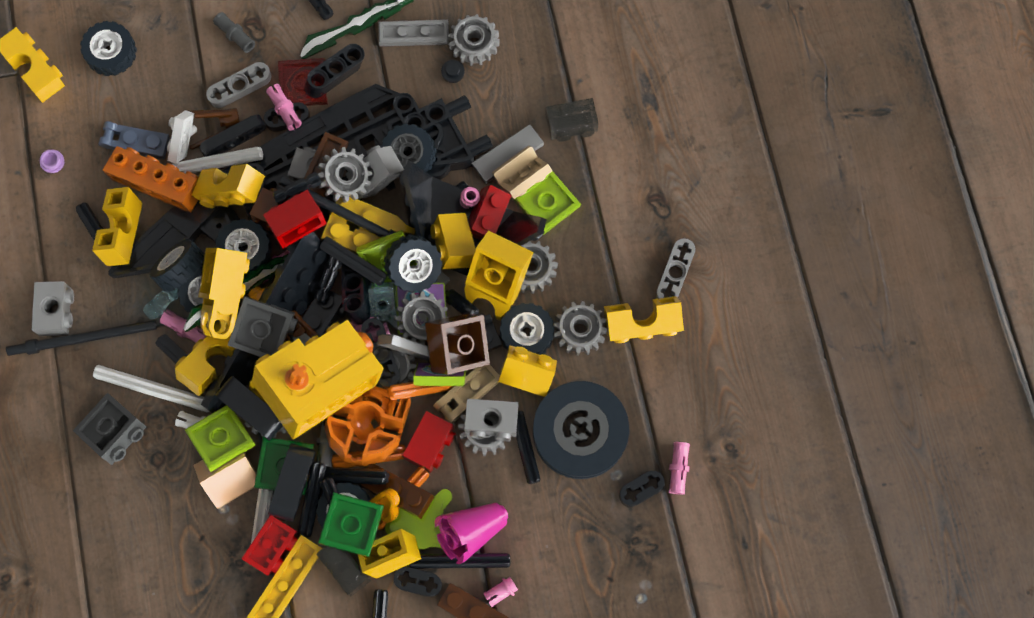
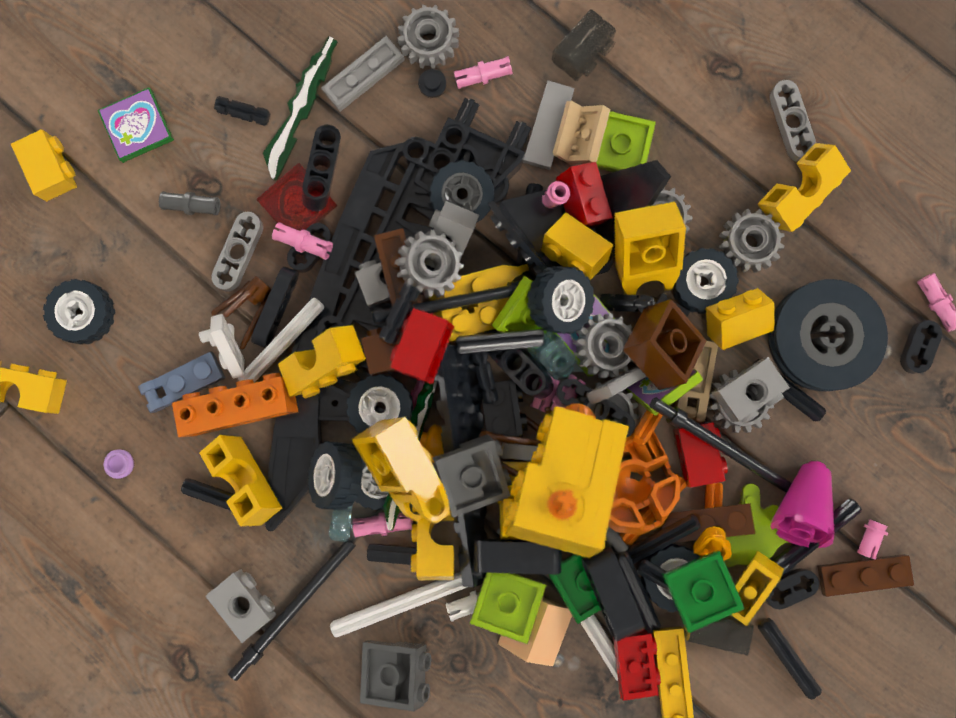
camera: 30 degrees left, 10 degrees up
(426, 396) = (680, 418): none -> black bar
(491, 88) = (483, 72): none -> bright pink pin

